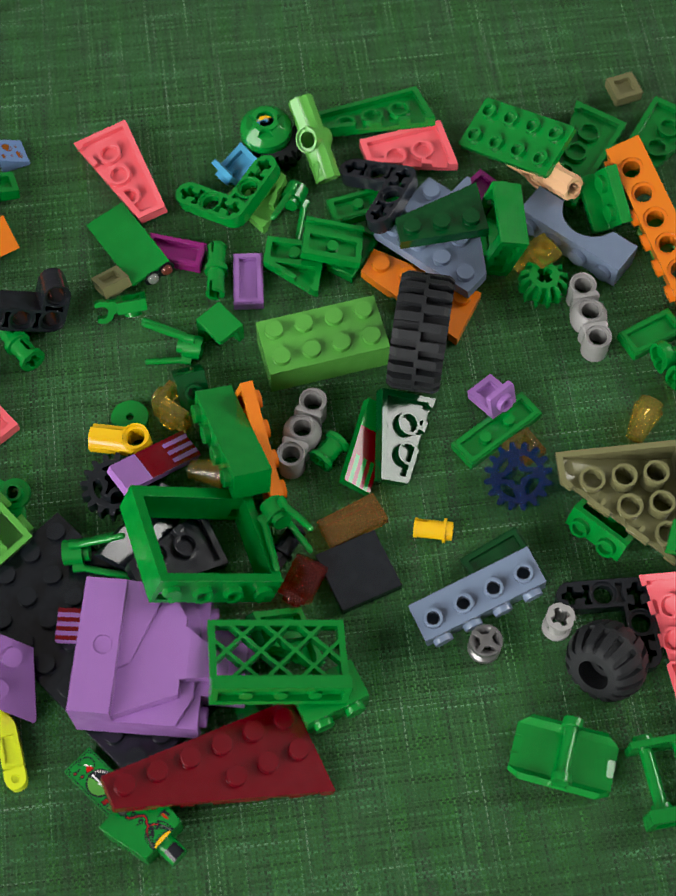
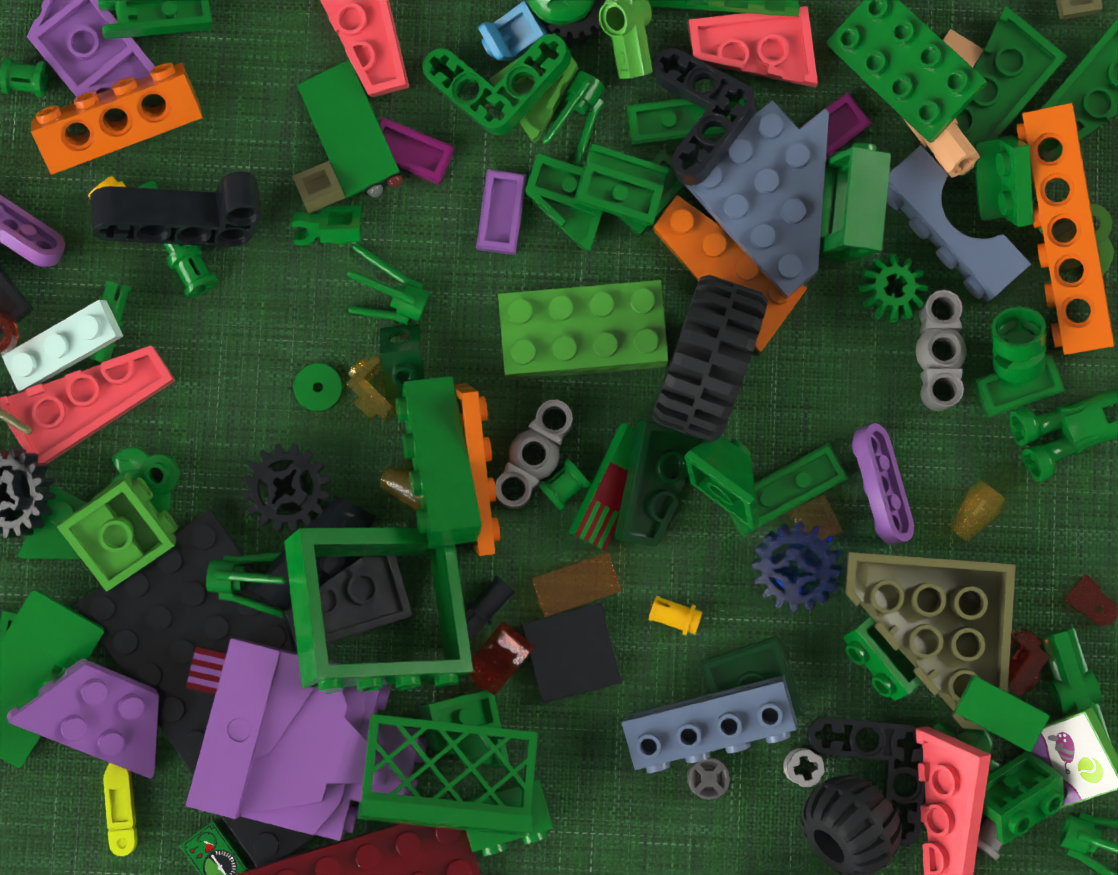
camera: 10 degrees right, 20 degrees up
(119, 439) = (297, 423): yellow piece -> none
(153, 462) = (337, 469): tile -> none
(216, 270) = (460, 191): green pin -> none
(219, 325) = (451, 282): green panel -> none
(277, 514) = (482, 575): green plant -> none
(444, 220) = (778, 182): dark green wing -> none
(450, 422) = (726, 476): none -> green slope
(493, 396) = (789, 446): medium lavender bracket -> none
(540, 251) = (899, 251): clear yellow bracket -> none
(568, 411) = (883, 484): none -> medium lavender plate
(643, 299) = (1019, 344): none -> green wheel

